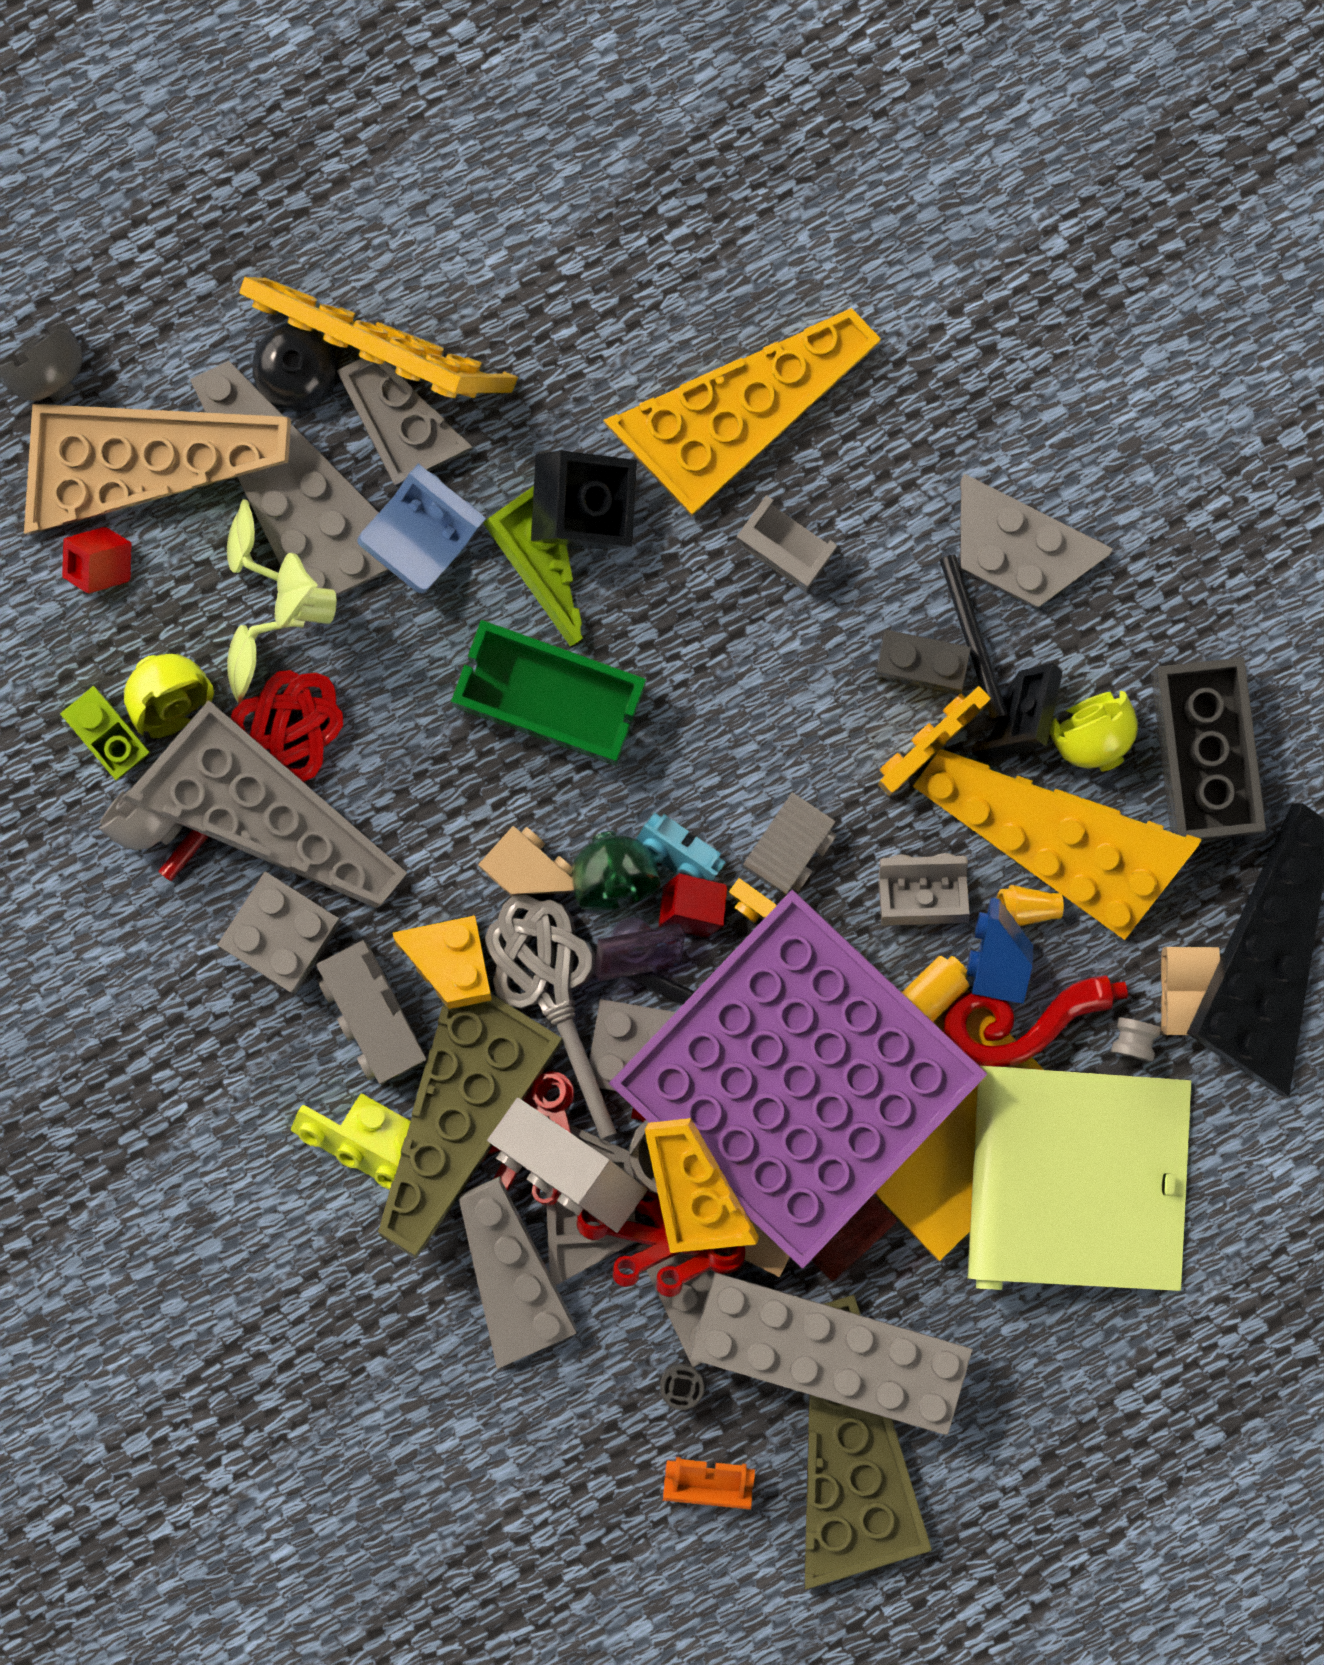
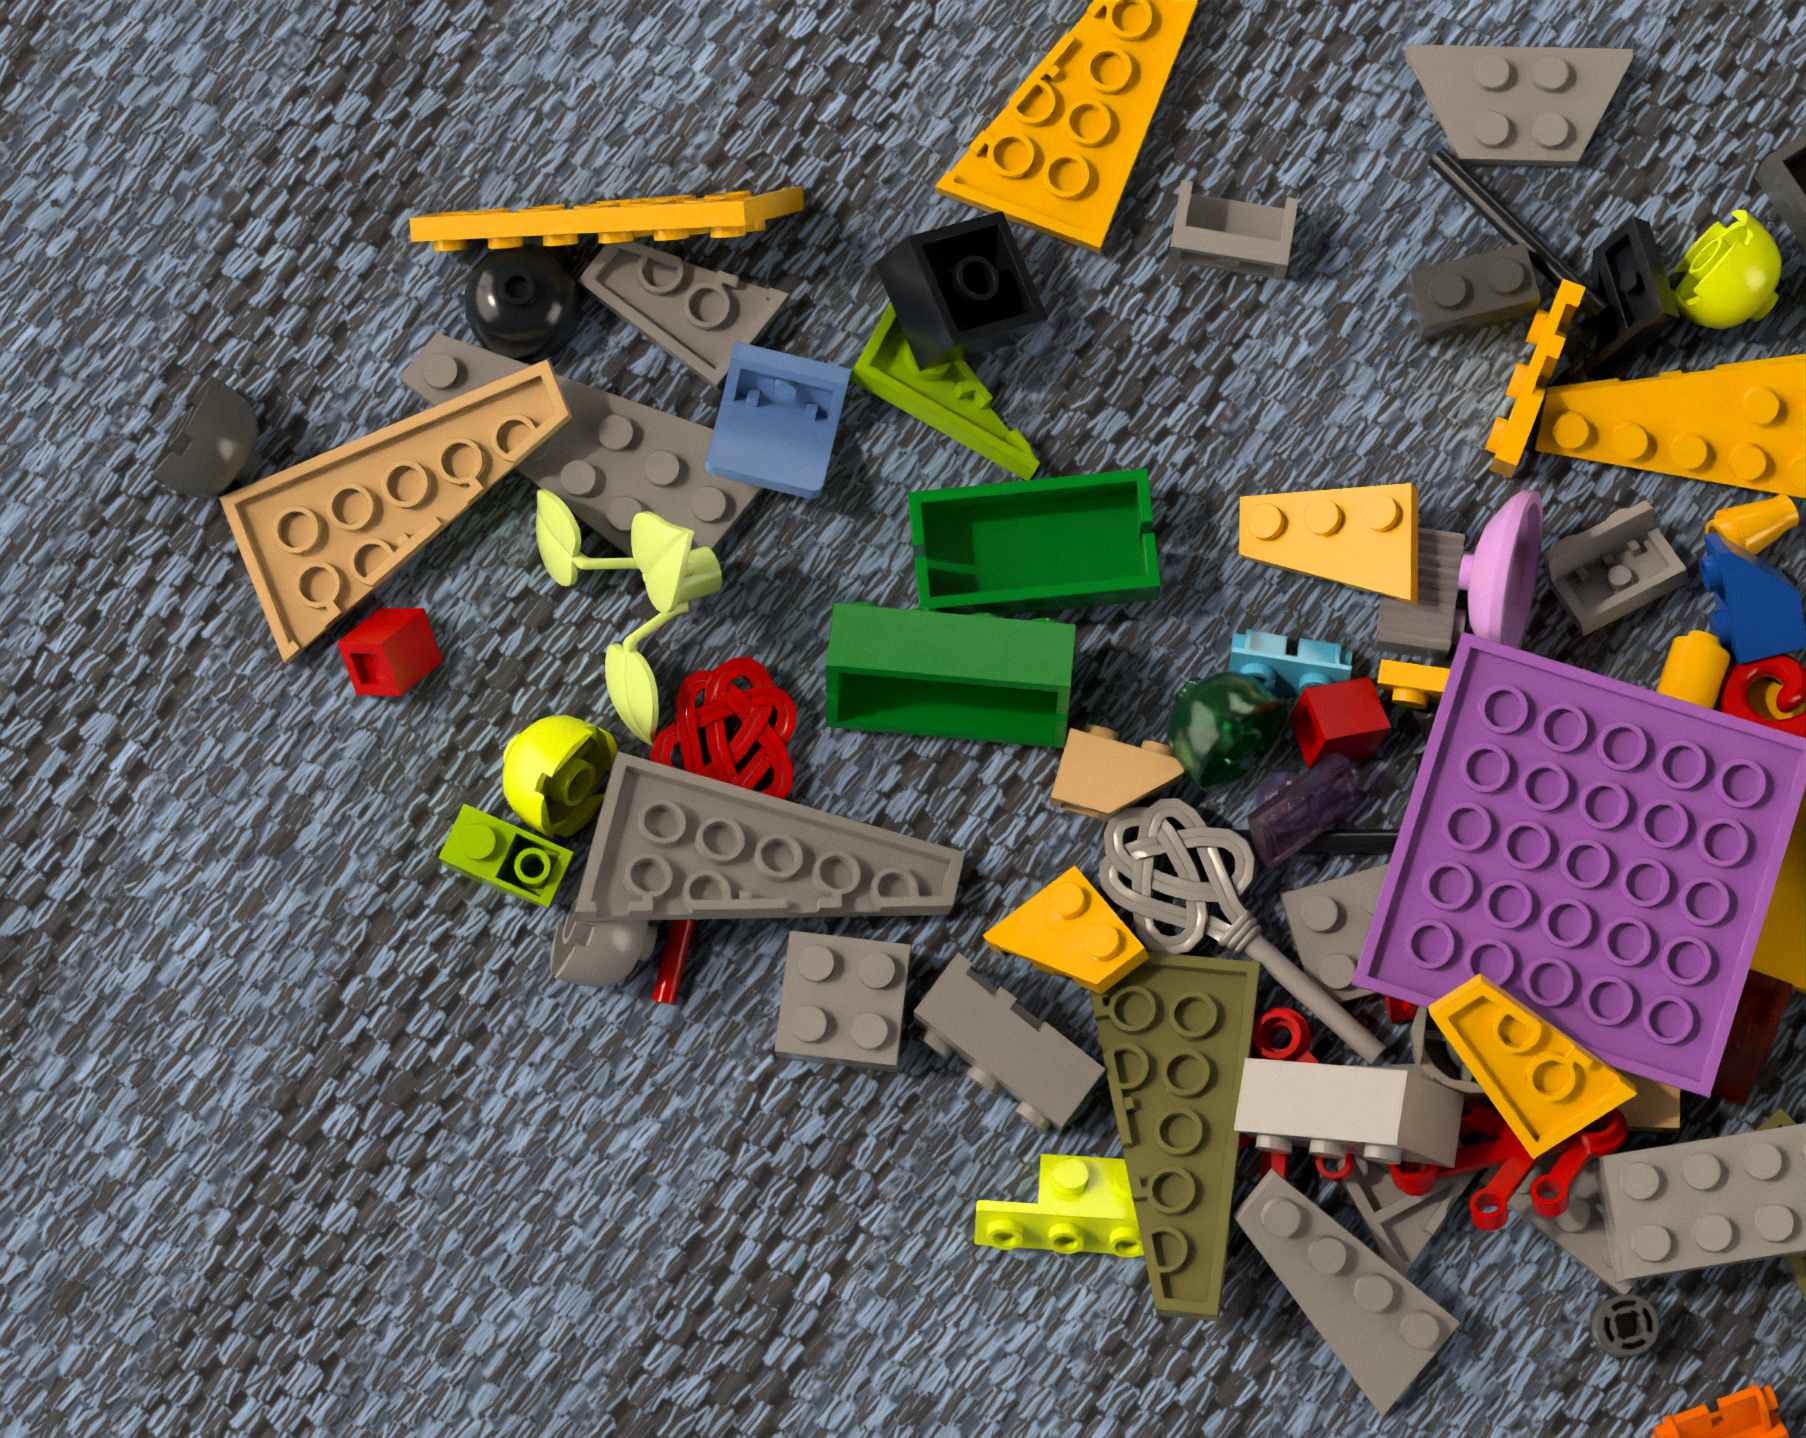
camera: 15 degrees left, 5 degrees down
(450, 752) = (949, 674): none -> green piece
(752, 782) = (1338, 535): none -> yellow wing
(846, 862) = (1505, 570): none -> lavender dish

